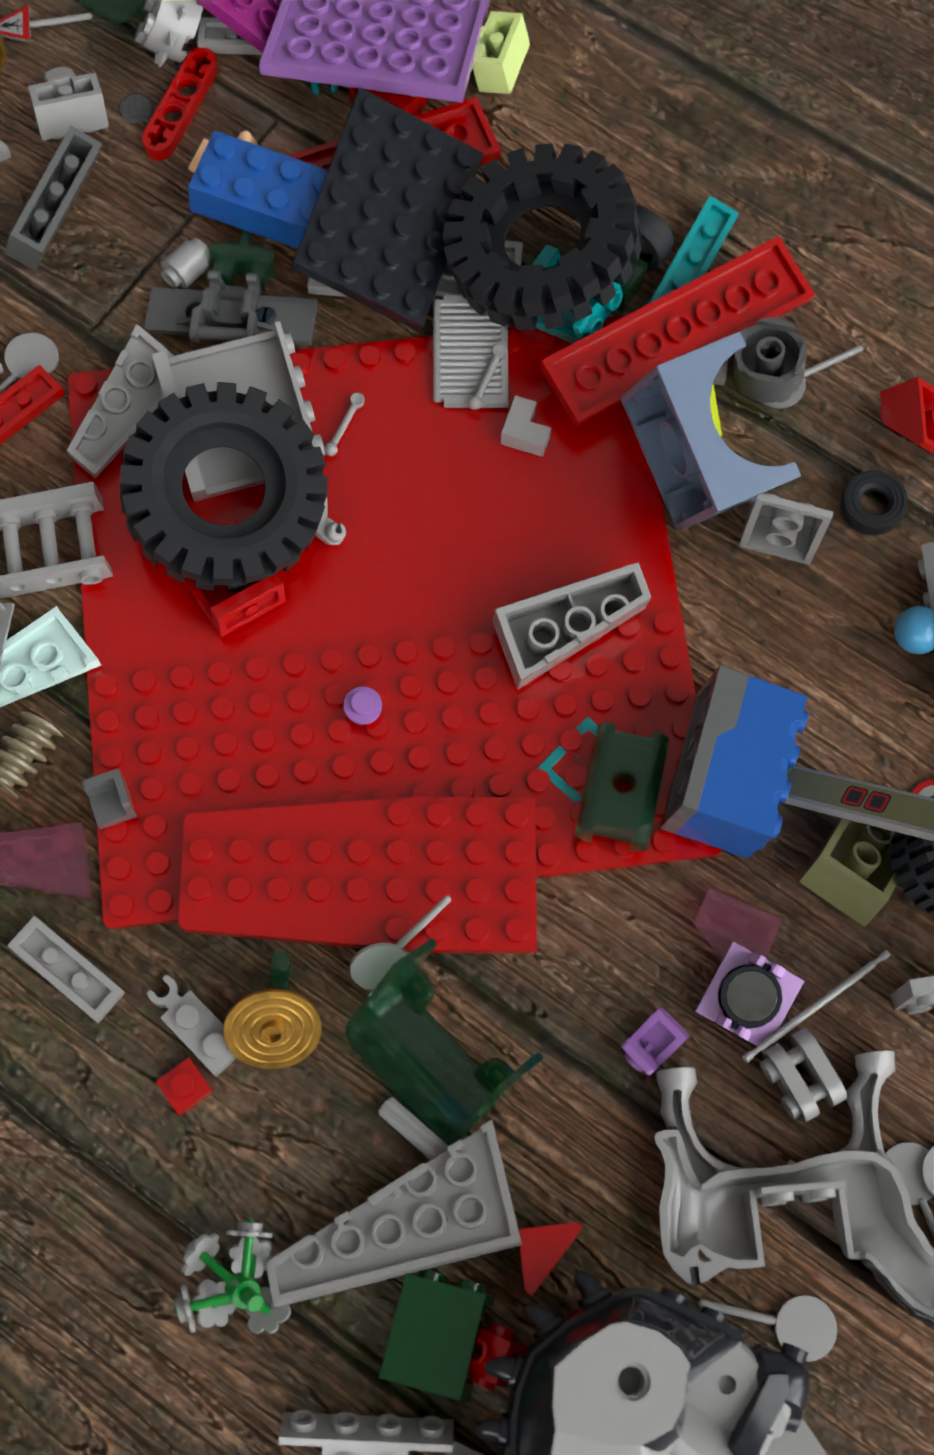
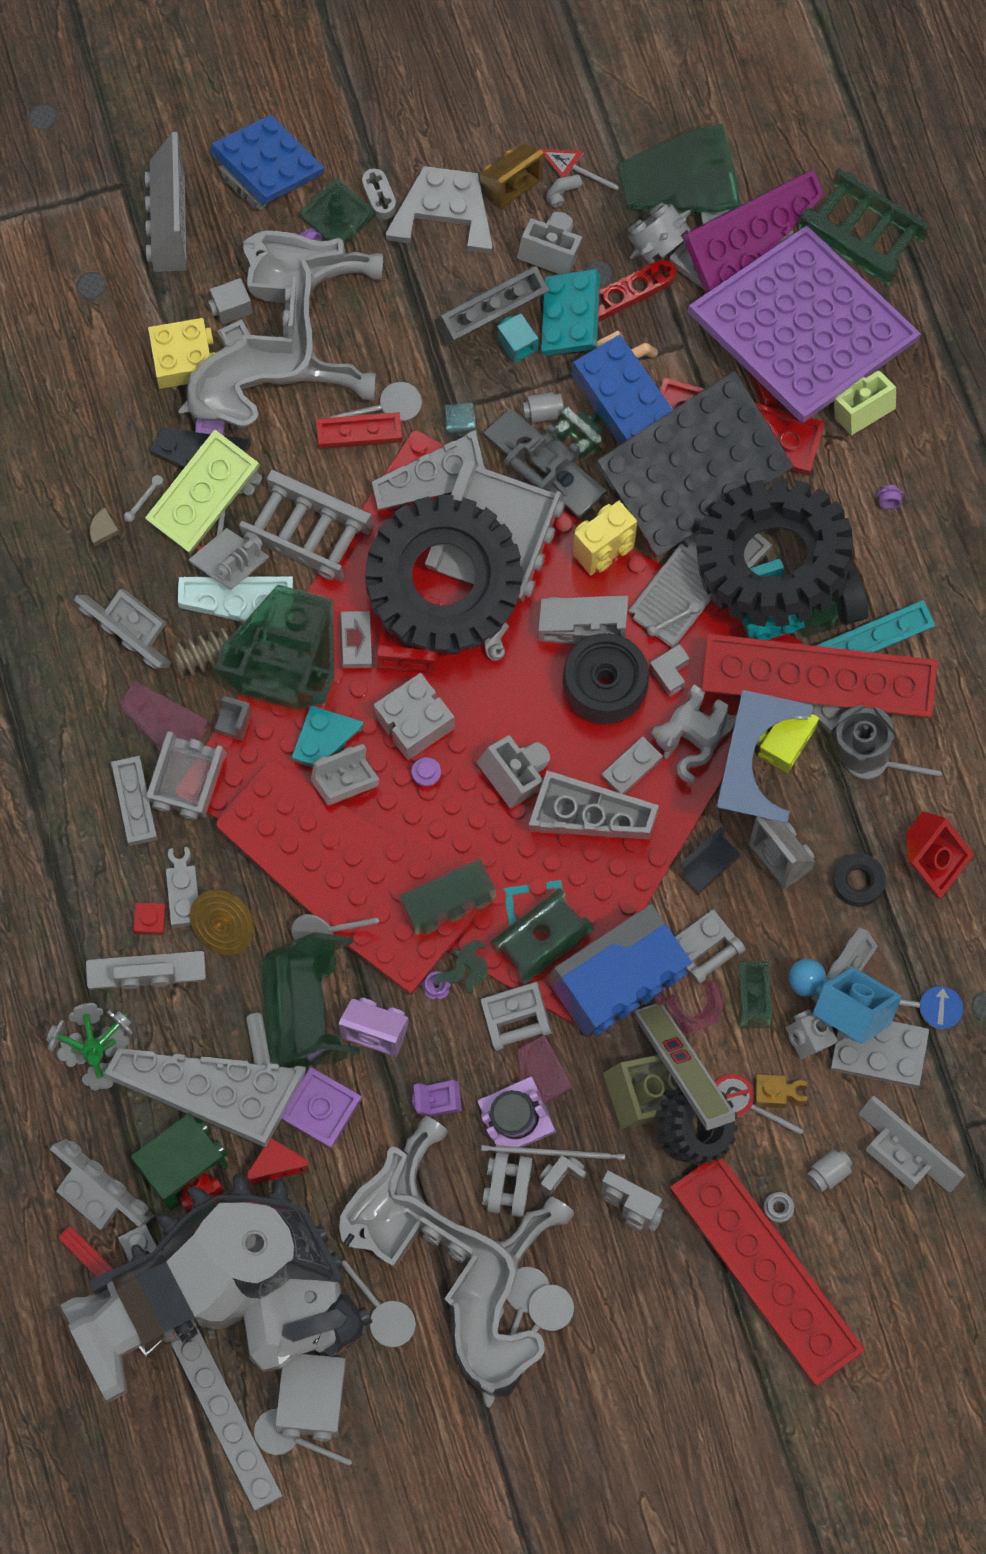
camera: 40 degrees right, 0 degrees up
(31, 49) = (561, 185): none -> light grey arm
(104, 214) = (517, 337): none -> teal brick
(105, 900) = (185, 776): none -> window
(108, 326) = (460, 417): none -> clear light blue bracket
(110, 688) = (283, 650): none -> clear green wedge
(141, 156) = (571, 312): none -> teal plate
(177, 623) = (356, 639): none -> light grey tile
(223, 748) = (323, 735): none -> teal wing
(224, 1148) = (146, 970): none -> light grey bracket
(280, 772) = (343, 774): none -> light grey bracket
(280, 970) = (254, 893): clear green tile -> none
(305, 652) = (416, 714): none -> light grey piece
(357, 401) = (580, 576): light grey hinge -> none
(358, 339) = (604, 537): none -> light yellow brick
(403, 436) = (578, 618): none -> light grey wedge
(454, 635) = (514, 769): none -> light grey brick
(477, 454) = (610, 658): none -> black wheel
(499, 818) = (448, 897): none -> clear green brick
(527, 1015) = (374, 1026): none -> lavender slope
(540, 1149) = (321, 1108): none -> medium lavender plate
(559, 914) = (431, 992): none -> medium lavender plate
(565, 549) = (632, 766): none -> light grey plate
(575, 867) = (475, 963): none -> clear green piece
(594, 126) = (890, 497): none -> medium lavender plate
(600, 465) = (696, 727): none -> light grey animal
(653, 881) = (512, 1007): none -> light grey plate
(718, 591) = (708, 862): none -> black panel
(776, 663) = (703, 937): none -> light grey plate
(840, 1027) = (554, 1174): none -> light grey bracket
(847, 738) = (707, 1017): none -> clear pink helmet
(880, 686) = (754, 994): none -> clear green brick

